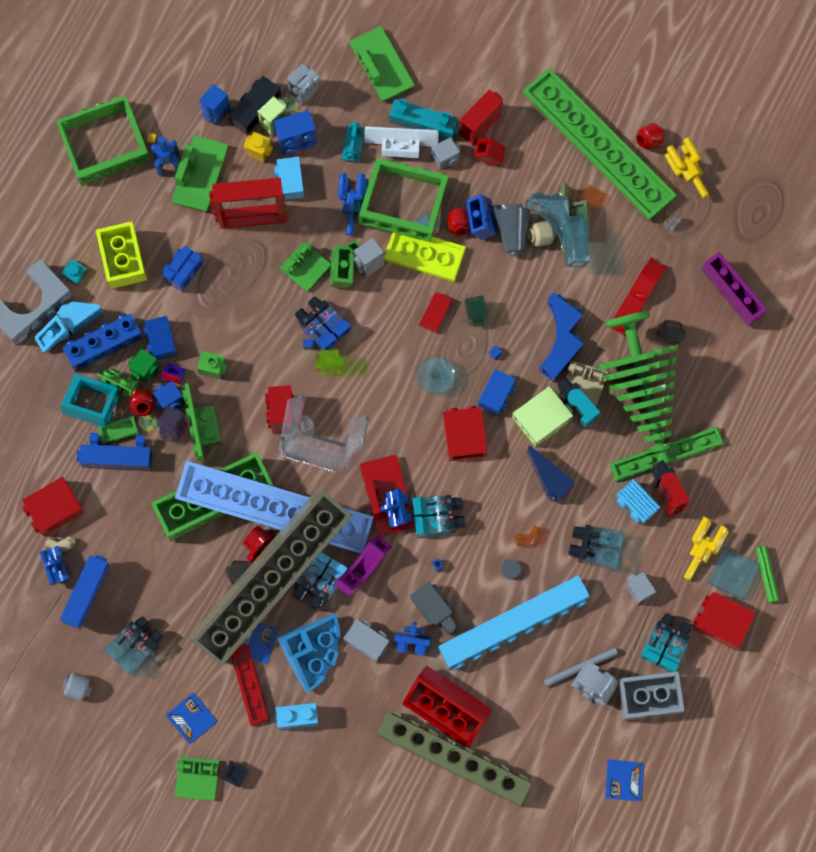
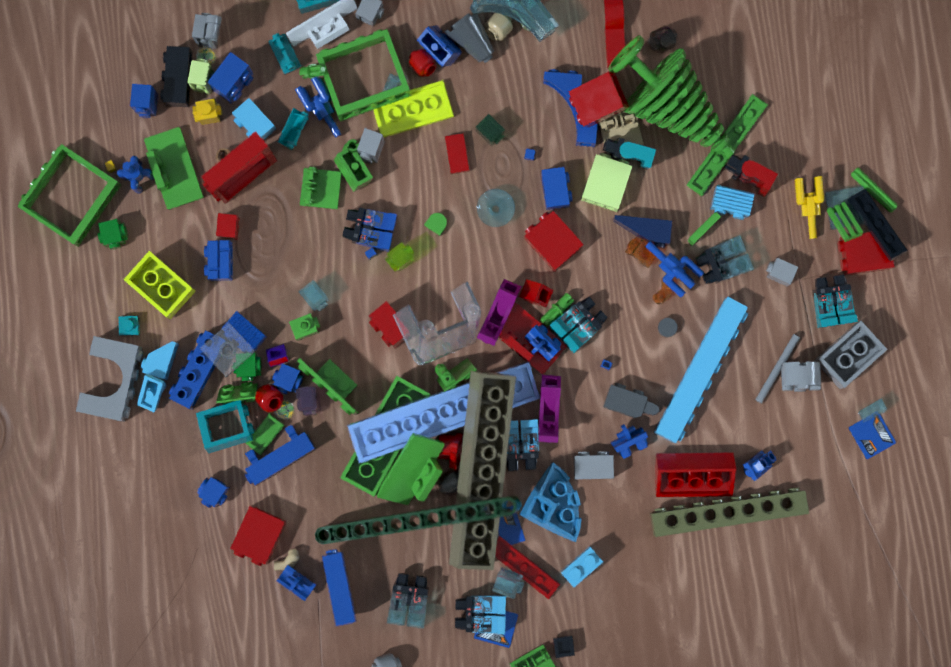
camera: 35 degrees left, 10 degrees up
(42, 447) = (212, 492): none -> blue brick
(114, 191) = (112, 234): none -> green brick
(136, 339) = (227, 350): none -> clear tile
(180, 695) = (476, 610): none -> hips
(194, 581) = (425, 517): none -> dark green beam
(209, 245) = (227, 226): none -> red panel
(213, 537) = (413, 471): none -> bright green bracket
(226, 687) = (508, 583): none -> clear light blue brick
(237, 346) = (314, 296): none -> clear light blue brick
(298, 485) = (450, 378): none -> bright green hinge
(317, 205) = (293, 128): none -> teal hinge
(364, 168) = (312, 71): none -> bright green axle
(378, 459) = (499, 312): none -> magenta arch
(379, 356) = (436, 223): none -> bright green tile
(419, 465) = (536, 293): none -> red brick
(428, 491) = (557, 309): none -> bright green axle
(507, 735) = (759, 464): none -> blue hips
(533, 492) = (637, 249): none -> clear orange bracket
(549, 521) = (674, 268): none -> blue plant
(580, 341) = (598, 99): none -> red brick
(599, 507) = (703, 228): none -> bright green tile
(639, 759) = (873, 410): none -> clear light blue piece
(723, 567) = (843, 207): none -> bright green tile
(748, 602) = (877, 225): none -> black tile

